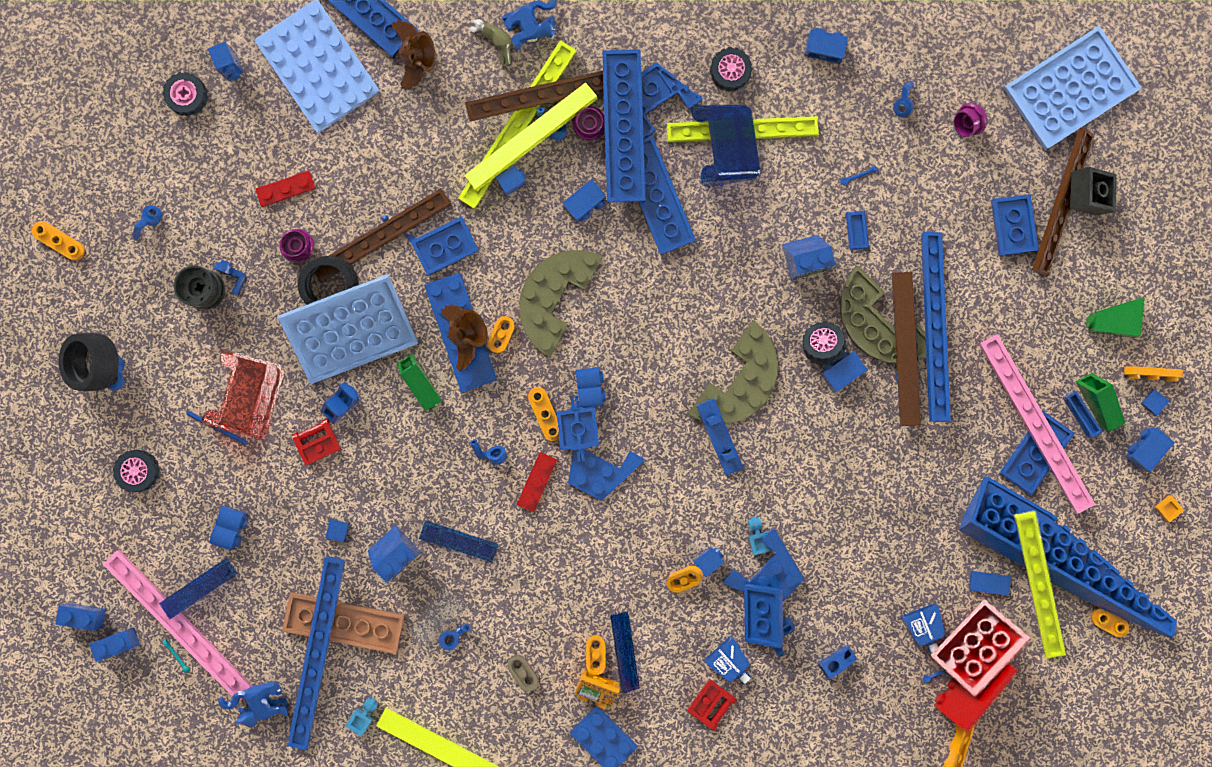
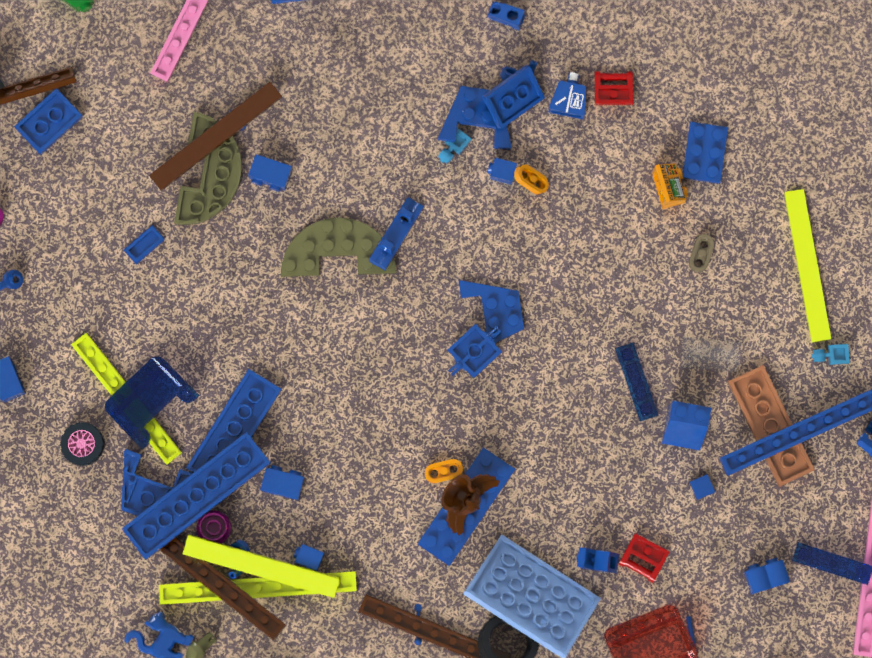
camera: 125 degrees left, 5 degrees down
(418, 382) = (532, 509): green slope -> none
(444, 246) = (404, 572): blue plate -> none
(454, 636) = (713, 329): blue plate -> none
(495, 455) = (547, 406): blue plate -> none
(536, 482) = (541, 354): red plate -> none
(538, 407) = (478, 396): light orange plate -> none
(544, 290) = (380, 463): olive plate -> none
(589, 387) = (433, 367): blue brick -> none
(595, 654) = (643, 206): light orange plate -> none
(624, 652) = (623, 185): clear blue plate -> none
(808, 257) = (196, 267): blue slope -> none
(824, 343) = (259, 204): black wheel -> none
(844, 181) = (109, 284): blue hinge -> none
(935, 327) = (179, 125): blue plate -> none

